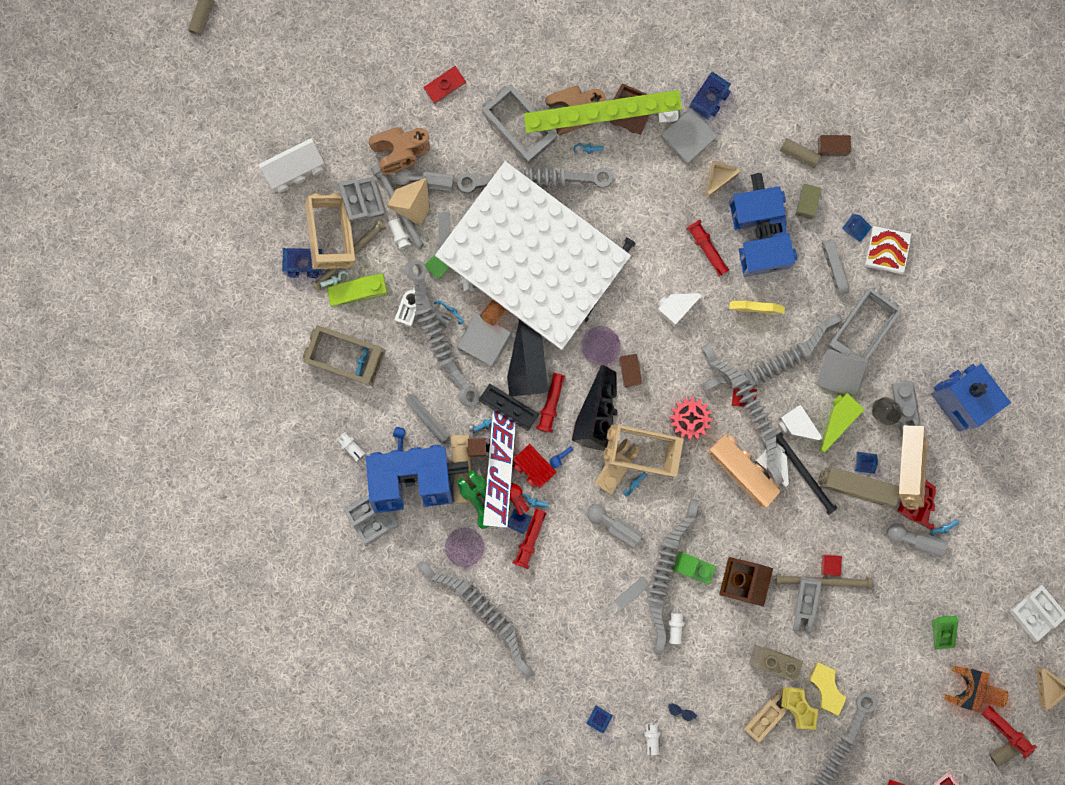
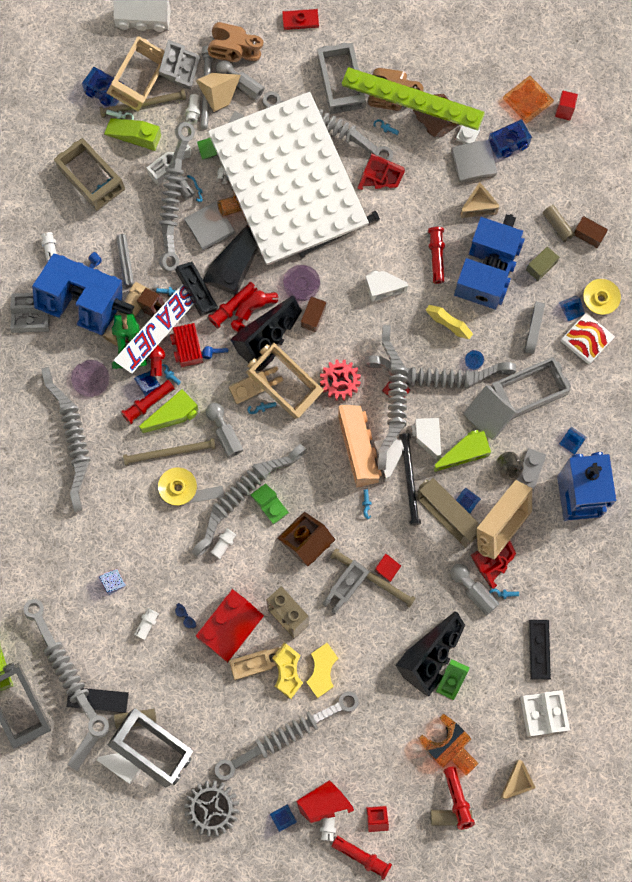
camera: 30 degrees right, 10 degrees down
(561, 534) = (173, 412): none -> lime slope
(567, 396) = (249, 304): none -> red arm
(577, 573) = (169, 451): none -> dark tan bar
(611, 197) = (381, 173): none -> red slope
(612, 609) = (175, 477): none -> light yellow dish
(703, 44) = (528, 99): none -> clear orange plate
(725, 698) = (229, 625): none -> red slope
(744, 33) = (566, 105): none -> red piece
(779, 518) = (366, 503): none -> dark azure hand
(797, 328) = (474, 359): none -> clear blue tile
(887, 197) = (607, 290): none -> light yellow dish
(910, 628) = (425, 658): none -> black wedge
(927, 352) = (573, 440): none -> clear blue slope
(1002, 560) = (539, 650): none -> black tile

